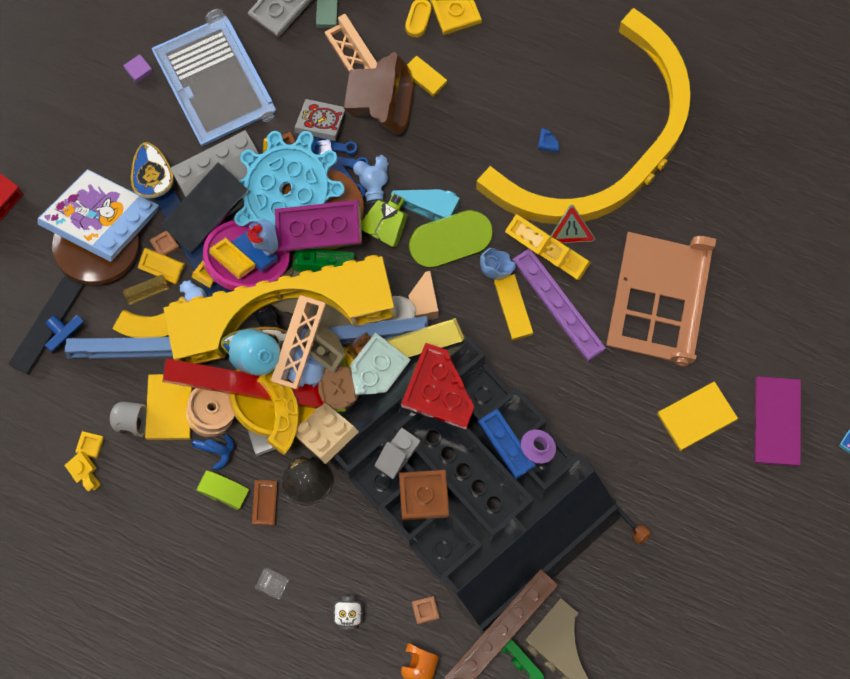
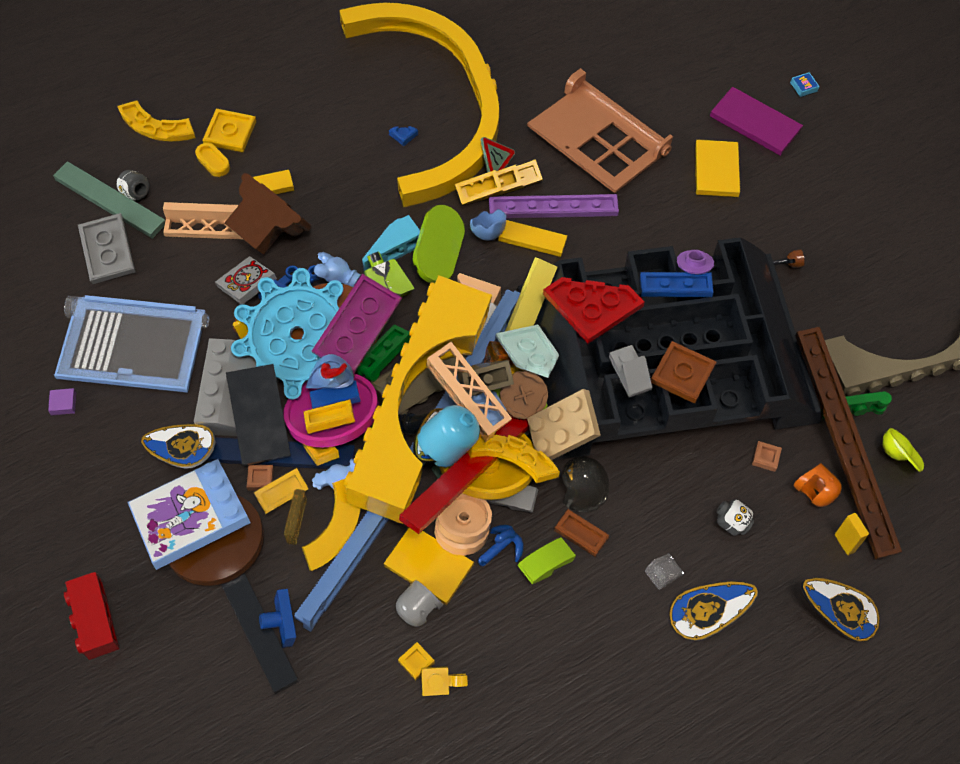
camera: 60 degrees left, 10 degrees down
(255, 634) = (710, 608): none -> shield

